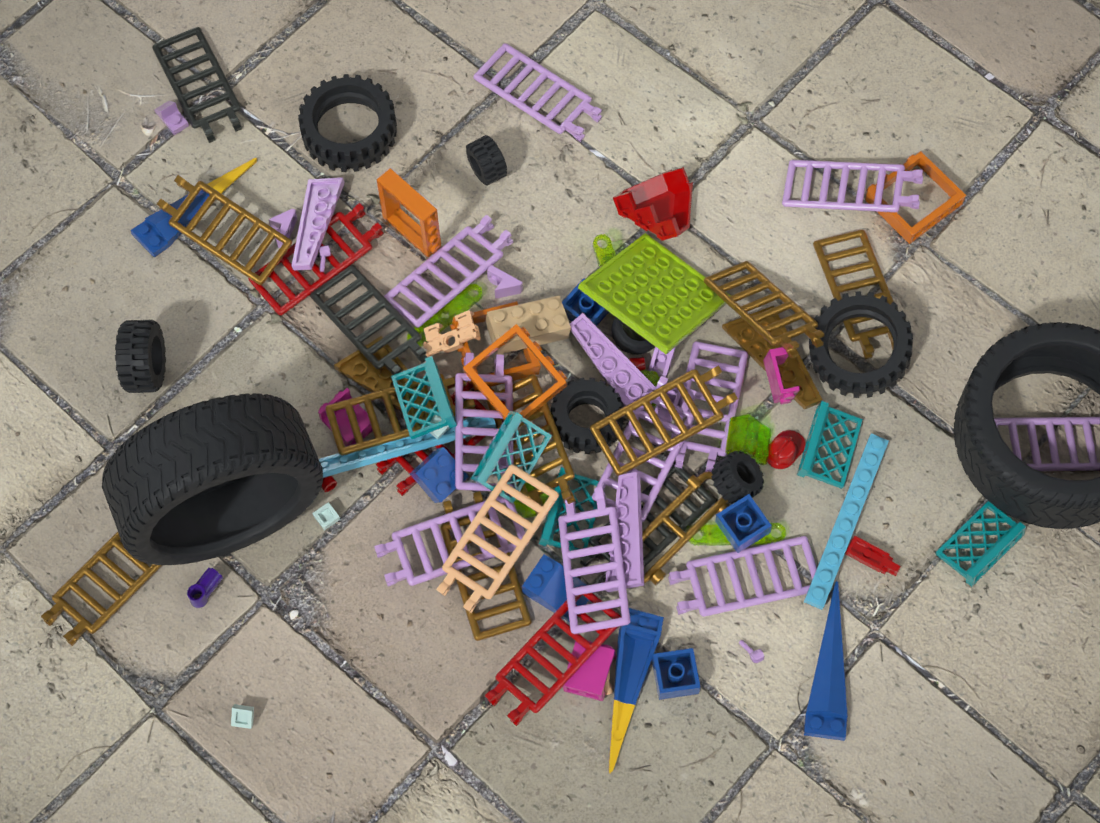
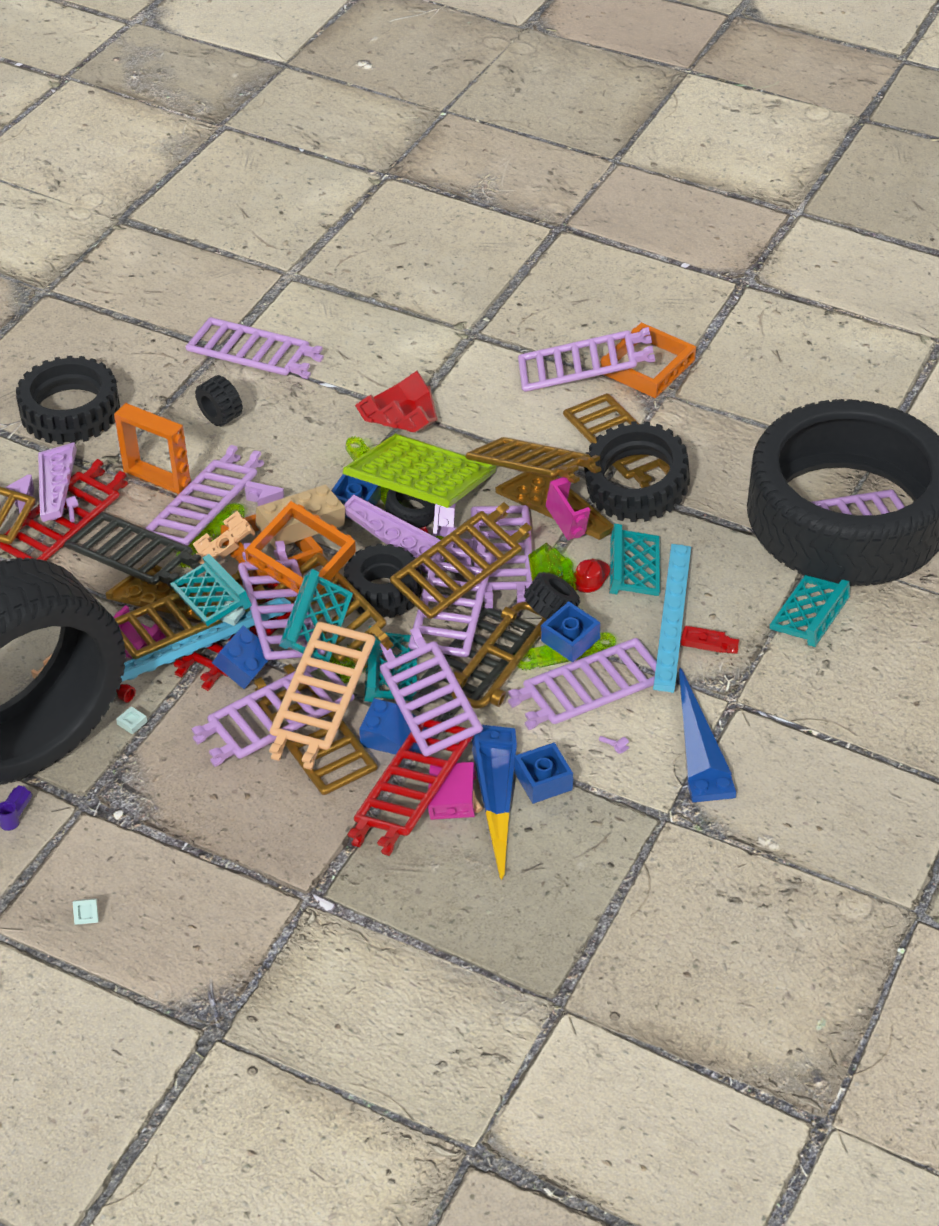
camera: 15 degrees left, 20 degrees down
(630, 531) = (457, 655): lavender wing -> none

